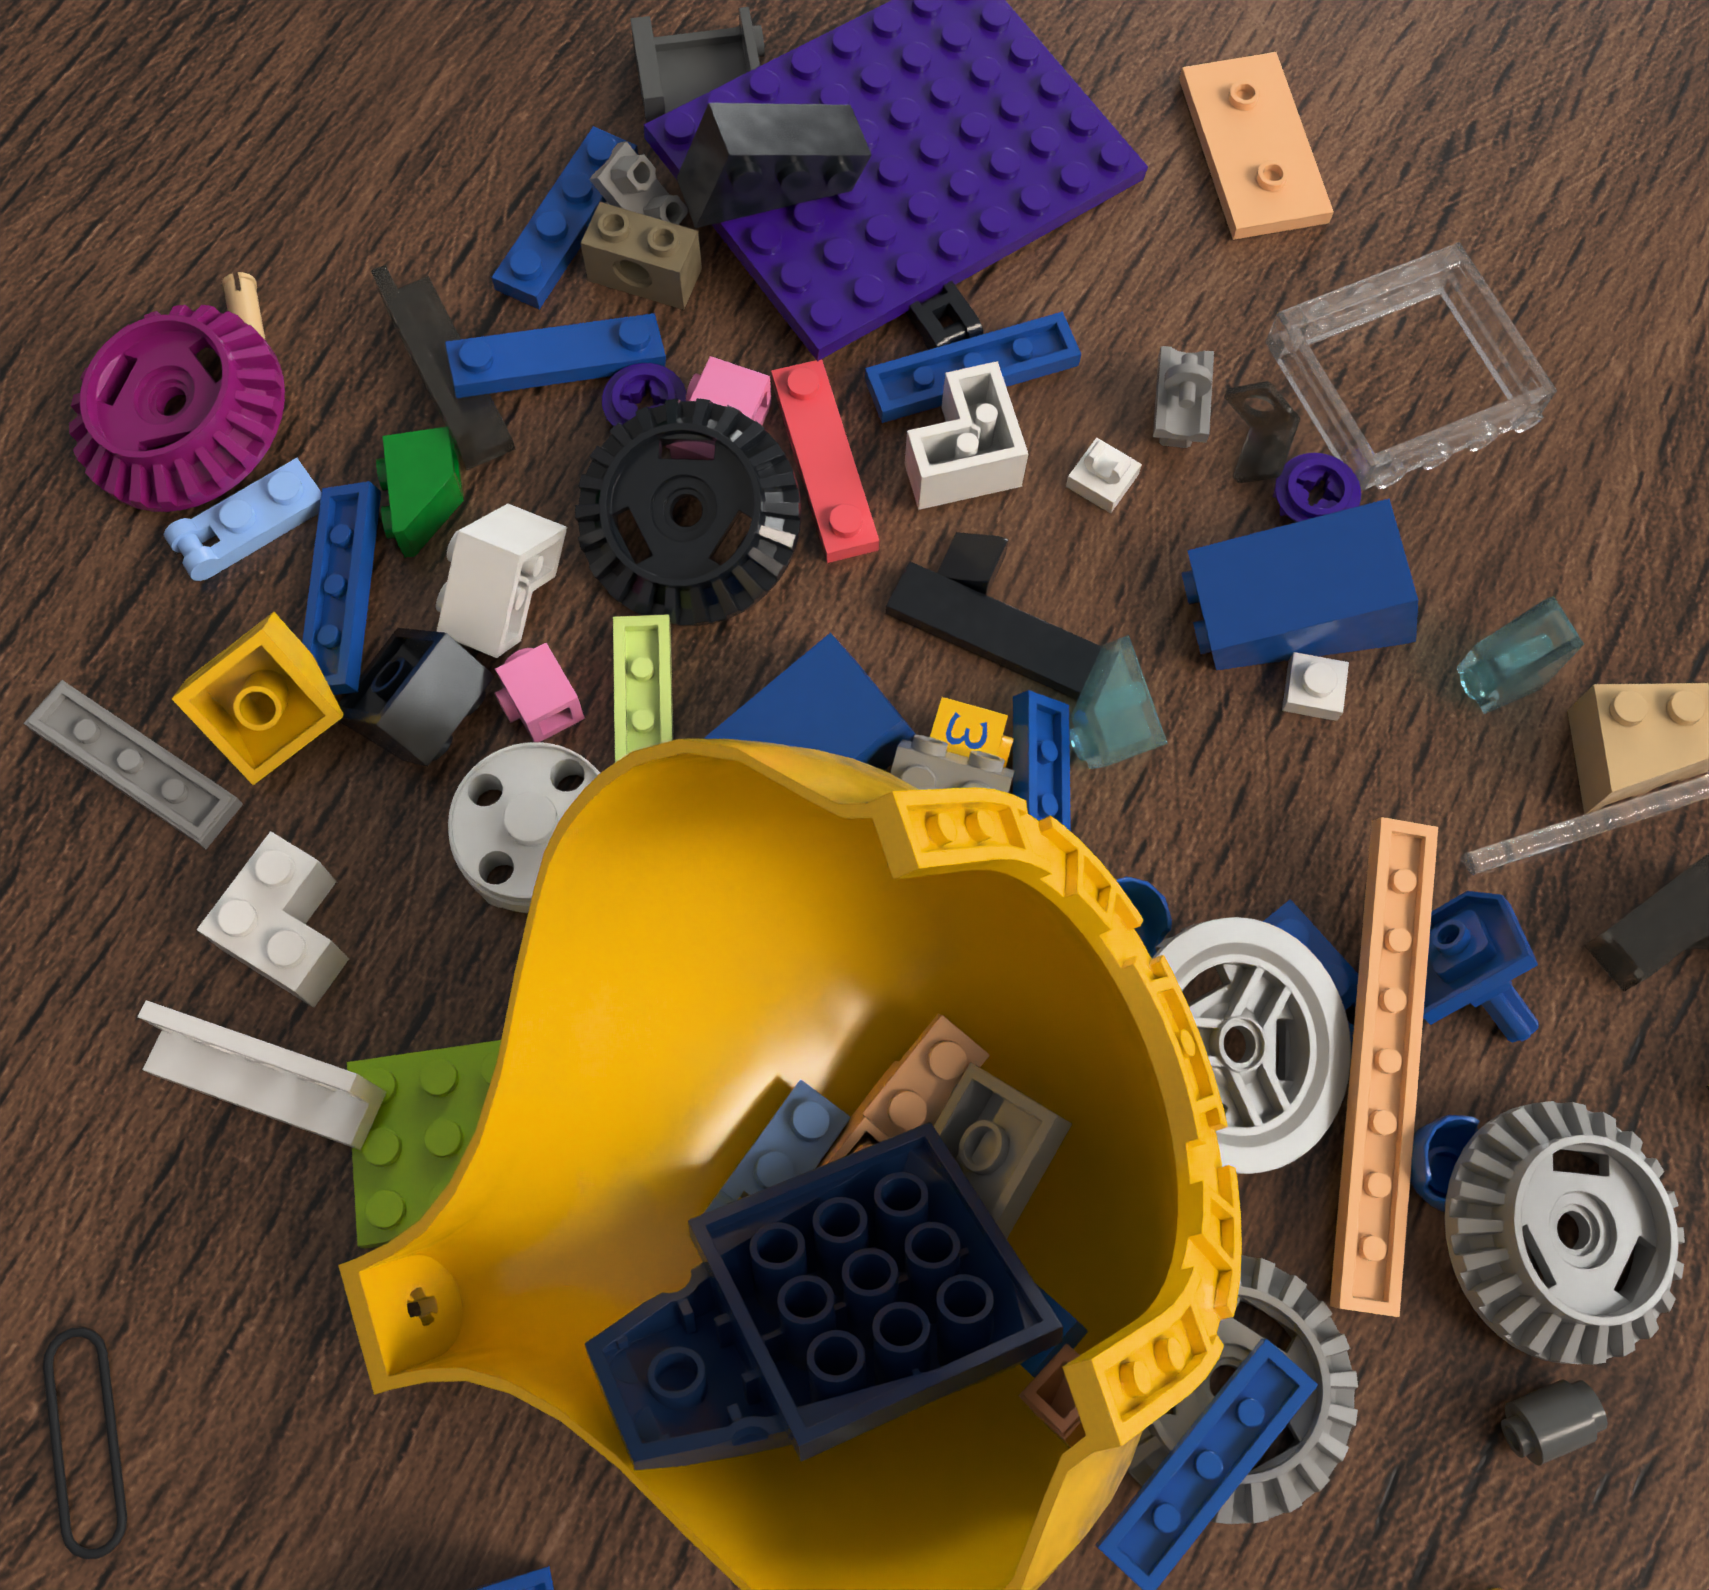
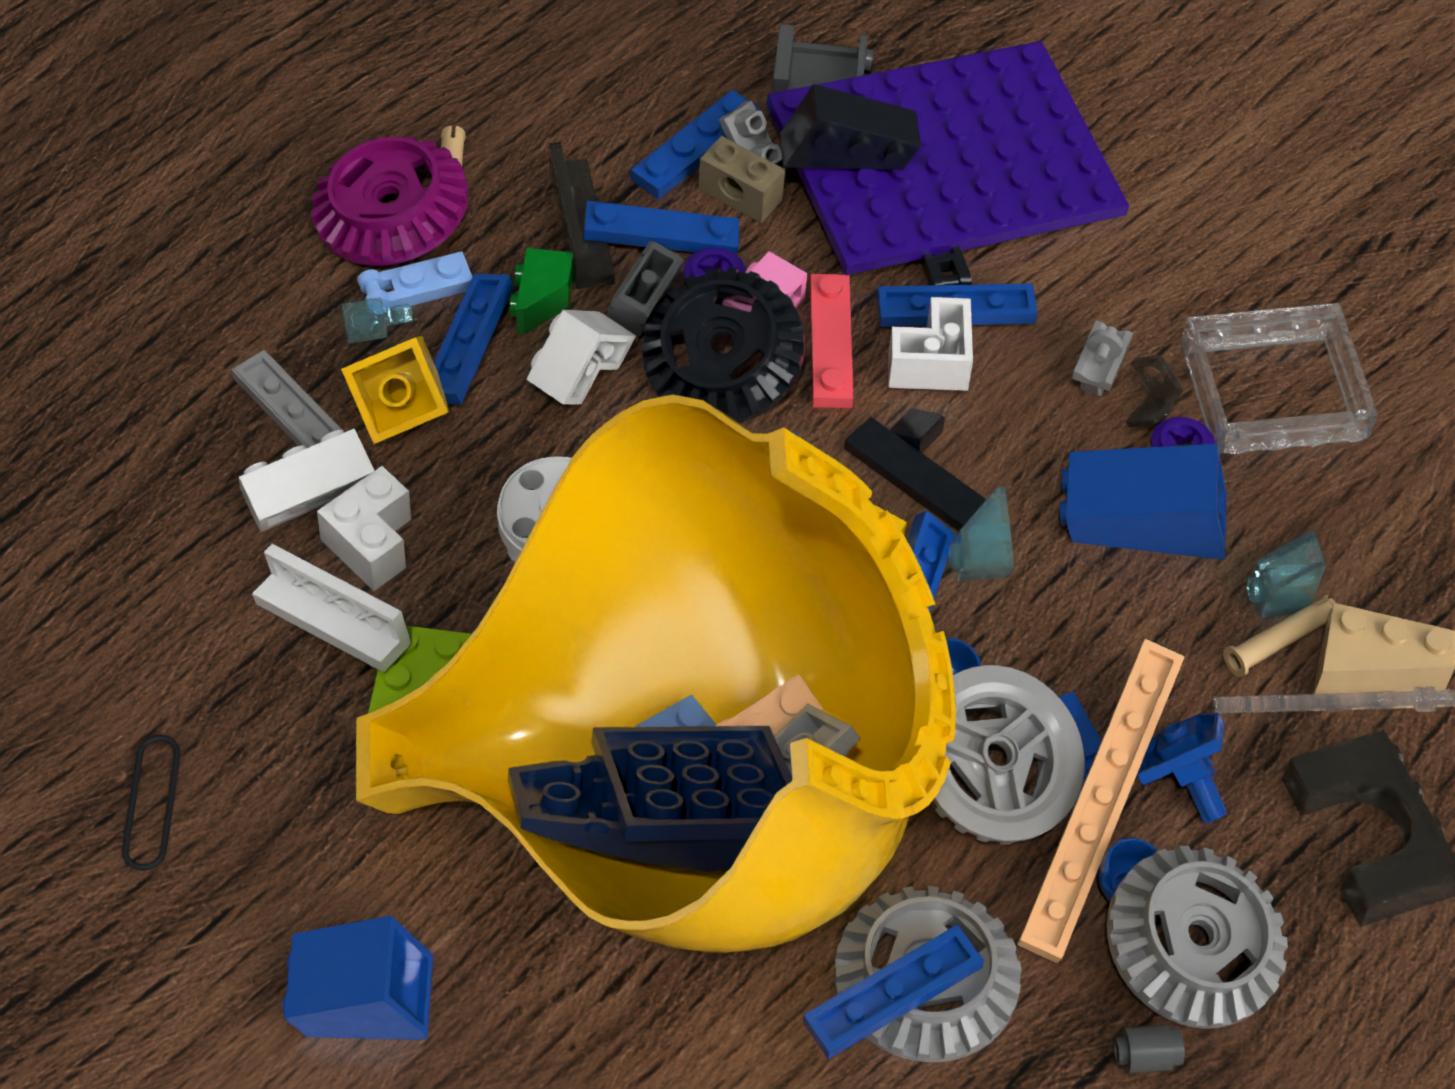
camera: 15 degrees right, 15 degrees down
(167, 874) = (304, 478): none -> white brick
(195, 598) = (368, 319): none -> clear light blue plate
(416, 694) = (501, 415): black slope -> none
(537, 693) = (578, 424): bright pink brick -> none
(559, 453) = (645, 287): none -> dark grey brick
(1103, 475) = (1029, 397): white tile -> none
(1255, 146) = (1216, 210): light nougat plate -> none
(1315, 686) = (1139, 567): white plate -> none
(1523, 741) = (1277, 637): none -> tan pin

